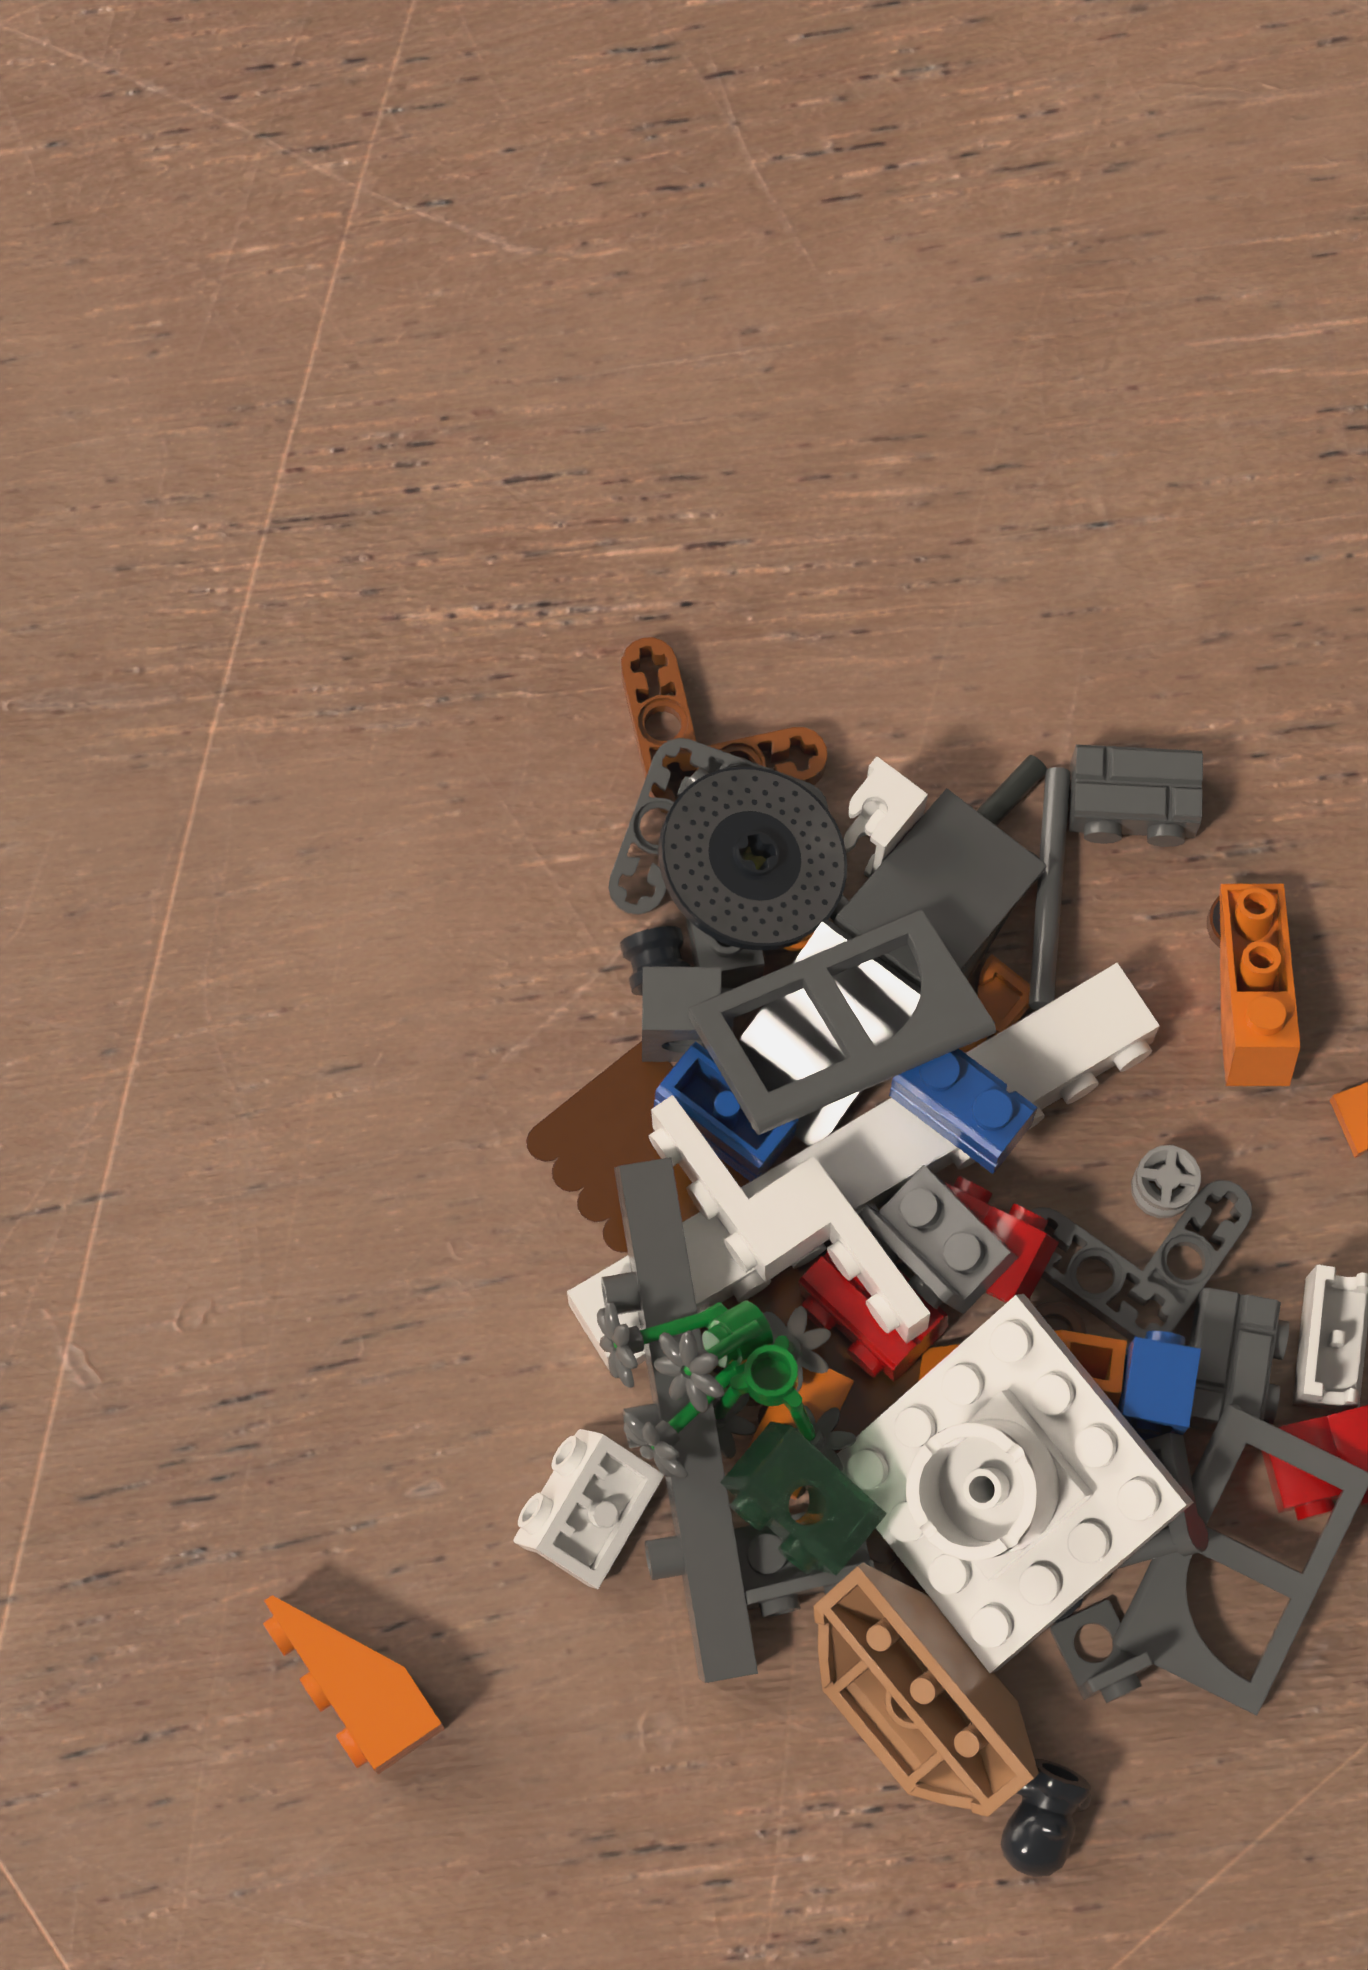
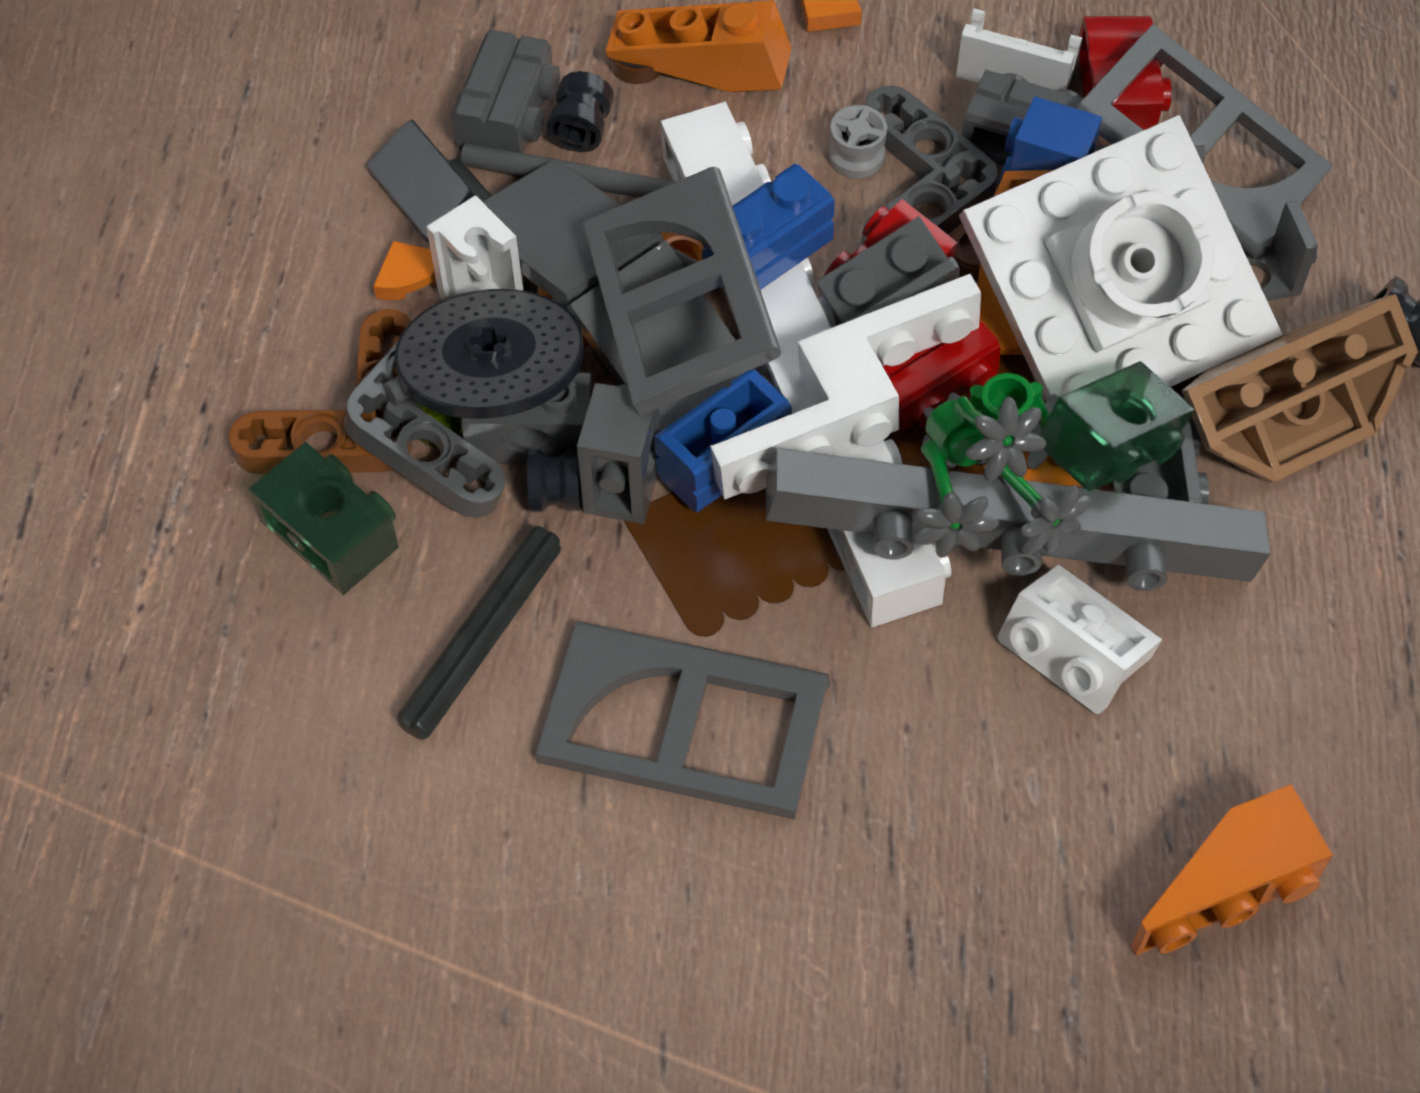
camera: 75 degrees left, 15 degrees down
(481, 933) = (478, 633): none -> pearl dark grey axle
(481, 1060) = (608, 658): none -> dark grey window
(571, 720) = (337, 546): none -> clear green brick
(892, 745) = (404, 271): none -> orange tile
(1002, 738) = (418, 177): none -> black slope
(1128, 877) = (580, 111): none -> black wheel

